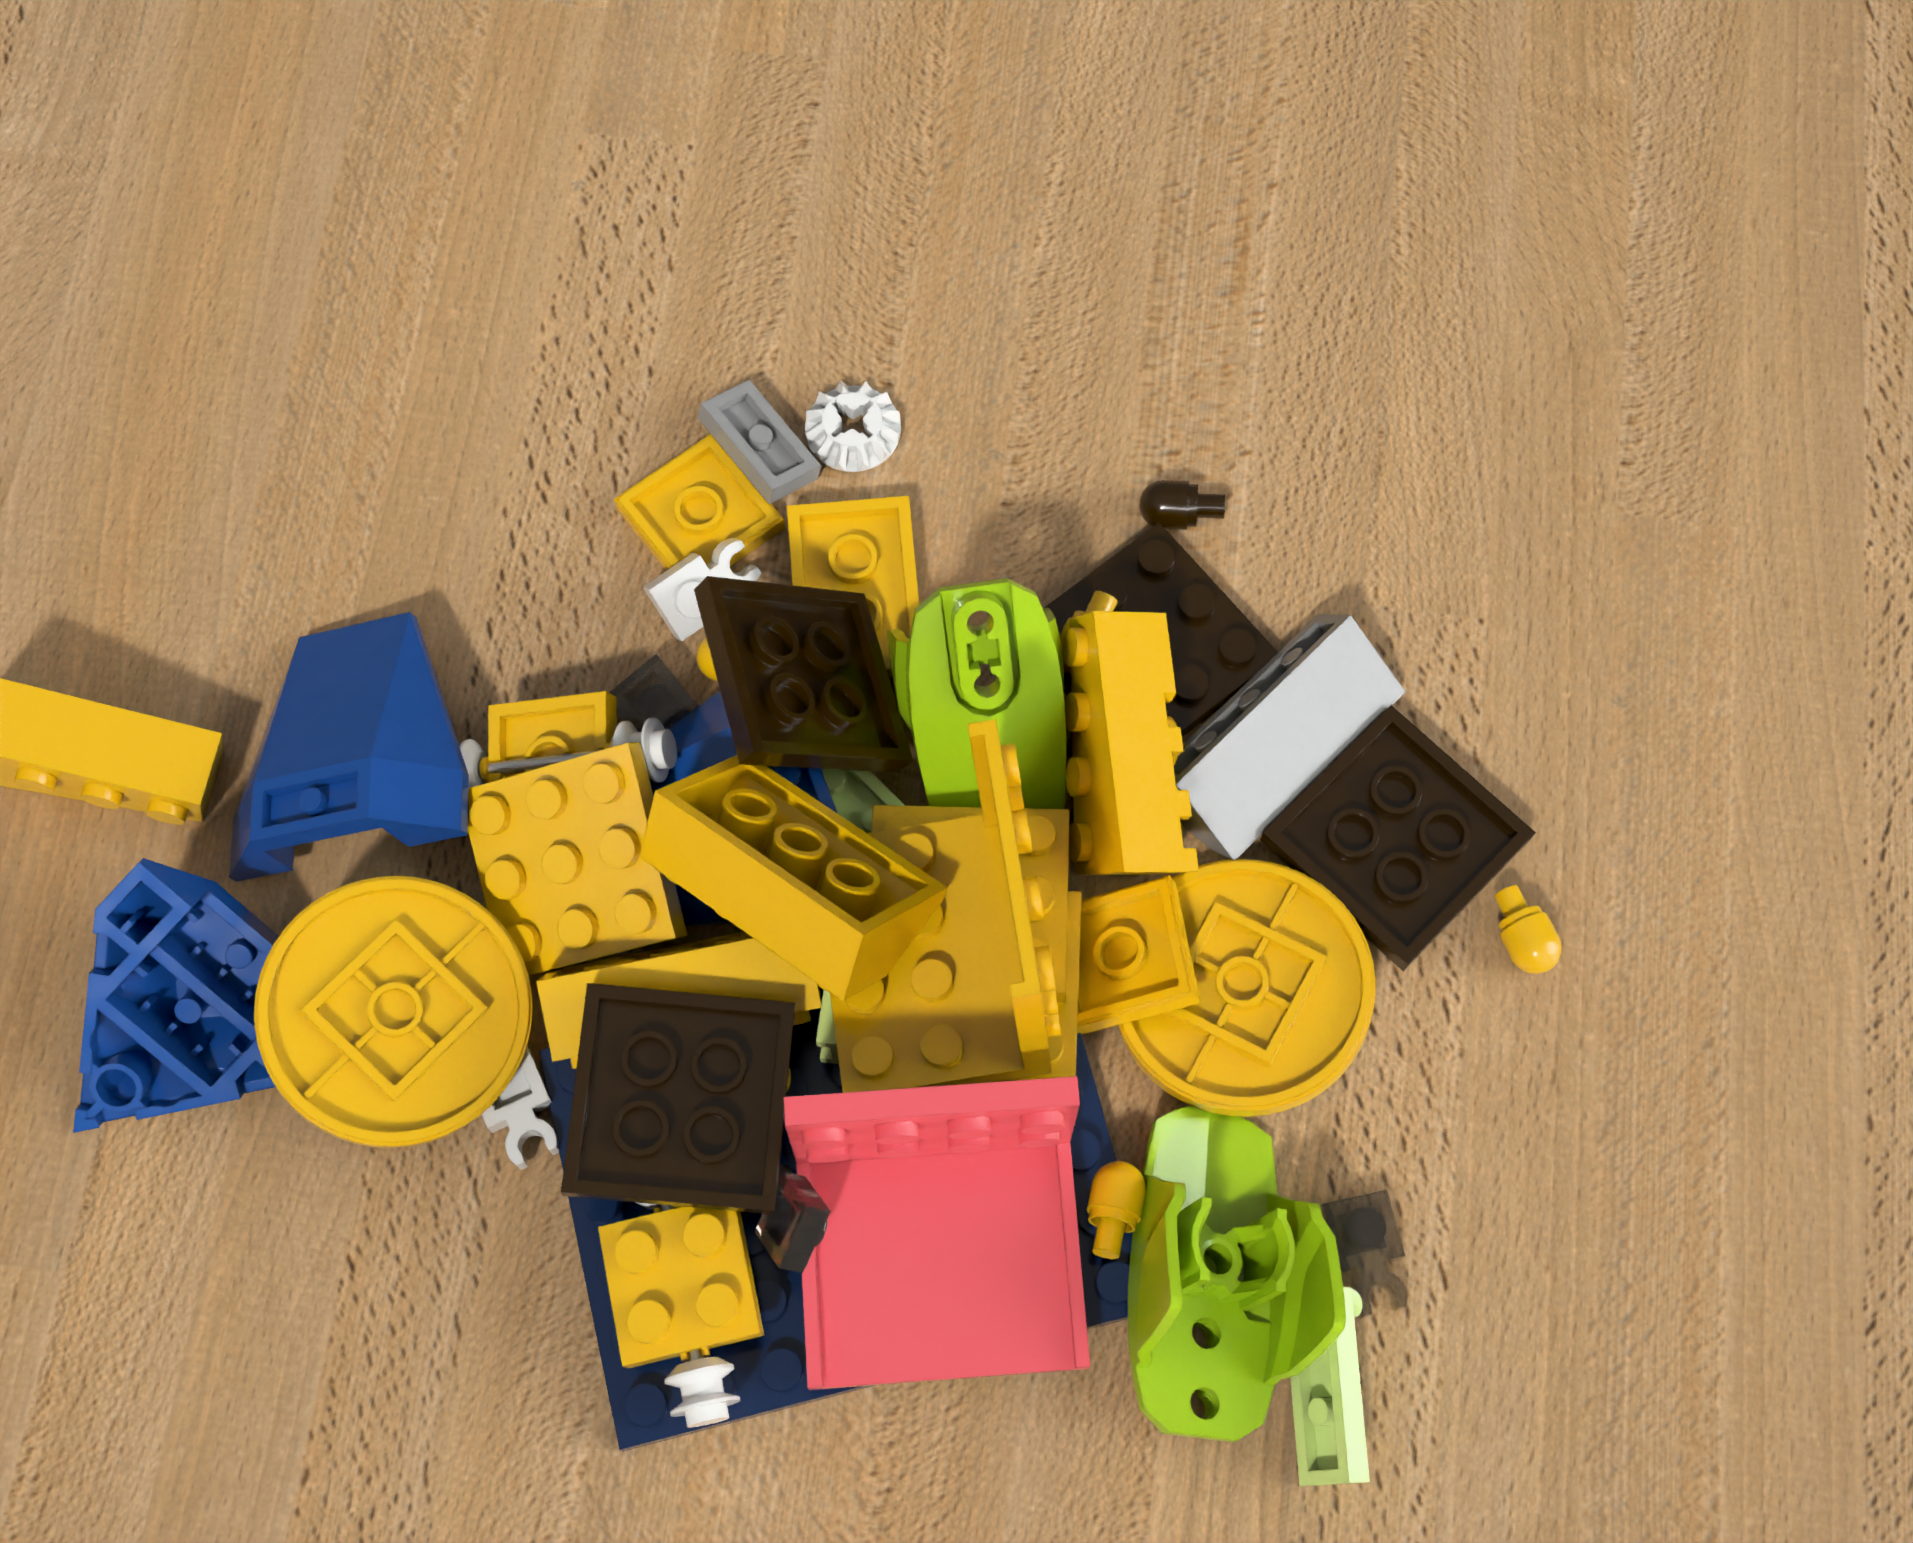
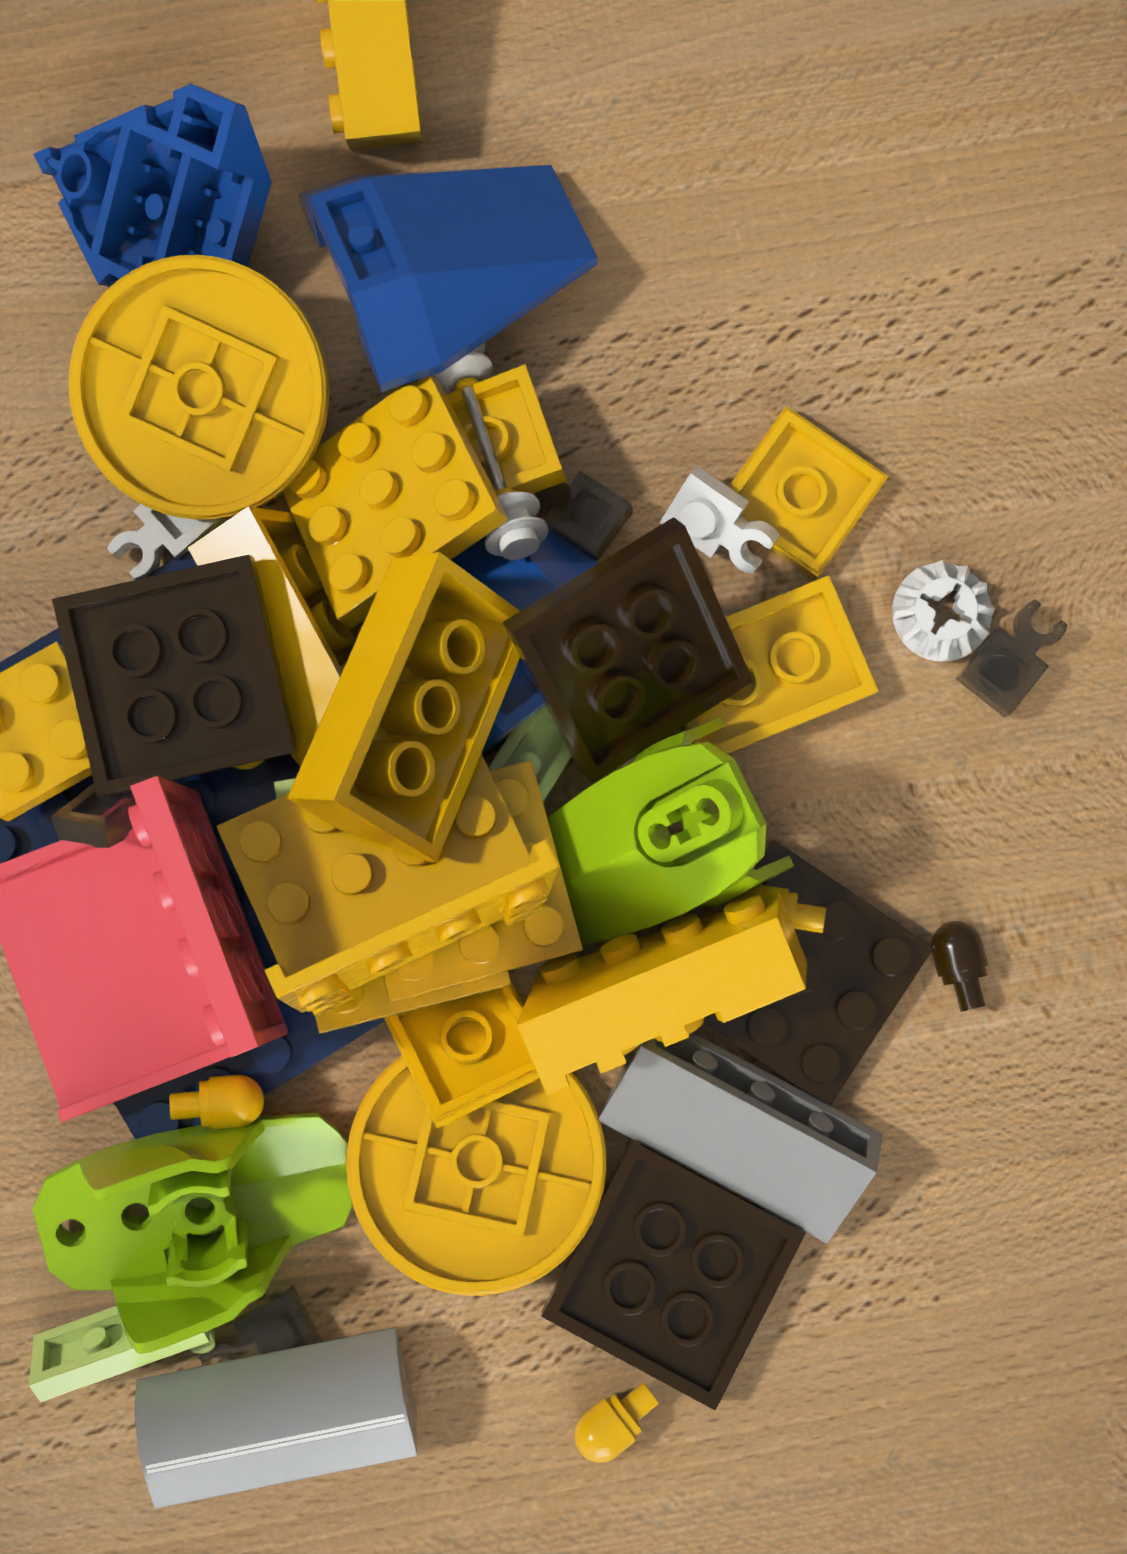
camera: 70 degrees right, 15 degrees up
(759, 441) = (892, 525): light grey plate -> none
(918, 386) = (1007, 665): none -> clear smoke plate
(1443, 1247) = (275, 1418): none -> light grey brick

